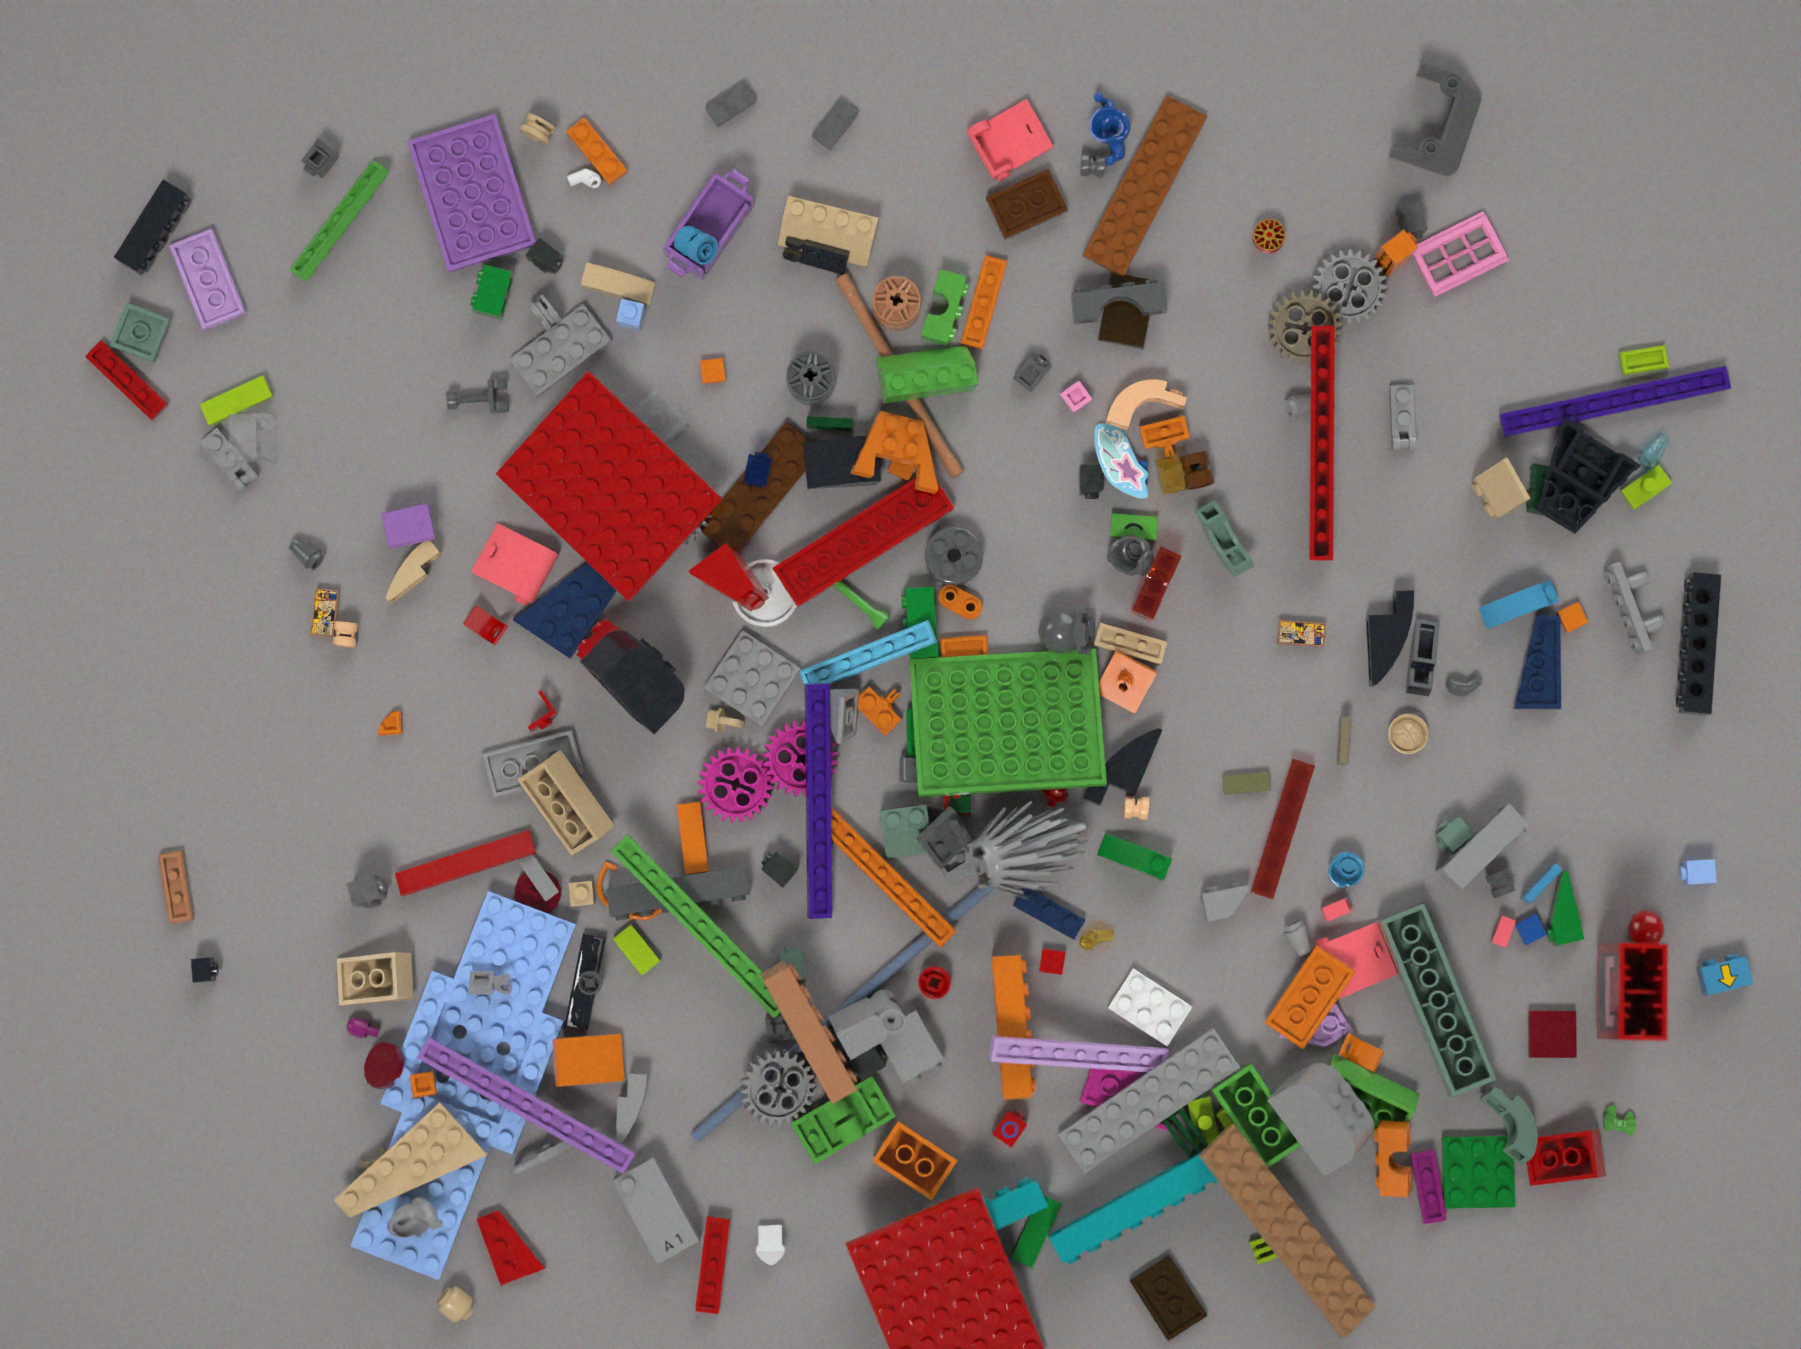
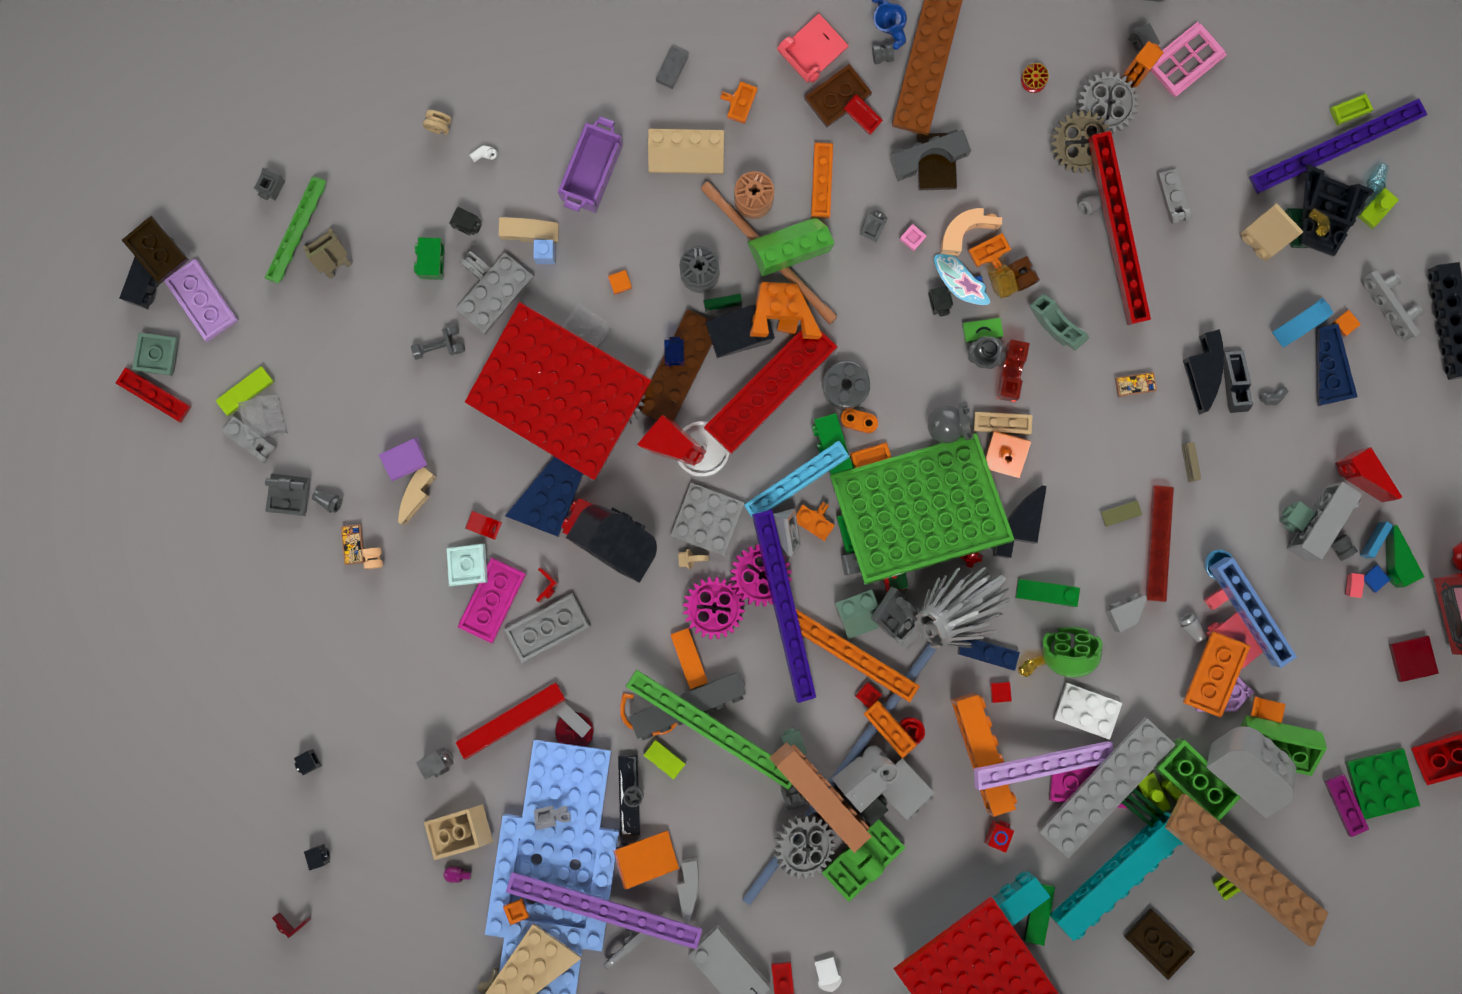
camera: 10 degrees left, 0 degrees up
(147, 1042) = (284, 927): none -> dark red bracket
(169, 209) = (155, 249): none -> dark brown tile
(175, 887) = (280, 794): nougat tile -> none
(215, 857) = (307, 762): none -> black plate
(261, 536) = (287, 494): none -> dark grey plate
(372, 262) = (327, 253): none -> dark tan piece
(383, 1065) = (480, 902): dark red tile -> none
(391, 725) = (426, 622): orange tile -> none
(455, 668) = (467, 565): none -> light aqua plate
(471, 193) = (396, 184): medium lavender plate -> none
(475, 716) = (492, 601): none -> dark pink tile
(515, 563) = (496, 470): coral door -> none
(566, 802) = (580, 653): tan slope -> none
(581, 893) = (609, 724): tan plate -> none
(596, 151) = (488, 130): orange plate -> none
(696, 244) = (583, 183): dark azure wheel -> none
(730, 104) = (586, 70): flat silver tile -> none
(778, 868) = (764, 668): pearl dark grey brick -> none
(816, 255) = (681, 172): black hinge -> none
(877, 617) = (796, 448): bright green piece -> none
(894, 929) = (868, 695): none -> red tile
(907, 185) = (740, 102): none -> orange plate
(910, 974) = (890, 729): none -> orange tile
(914, 1160) = (929, 880): orange brick -> none
(940, 328) = (792, 207): bright green arch -> none
(1050, 234) = (862, 114): none -> red tile
(1136, 807) = (1039, 553): light nougat wheel -> none
(1144, 942) = (1072, 661): none -> bright green cylinder
(1367, 933) = (1253, 612): none -> medium blue brick
(1393, 1178) = (1315, 774): orange arch -> none
(1408, 733) = (1241, 444): tan hat -> none
(1436, 1000) = (1321, 655): sand green brick -> none
(1519, 1123) = (1411, 741): sand green arch -> none
(1545, 800) = (1367, 473): none -> red slope
(1565, 489) = (1322, 221): none -> clear yellow arm

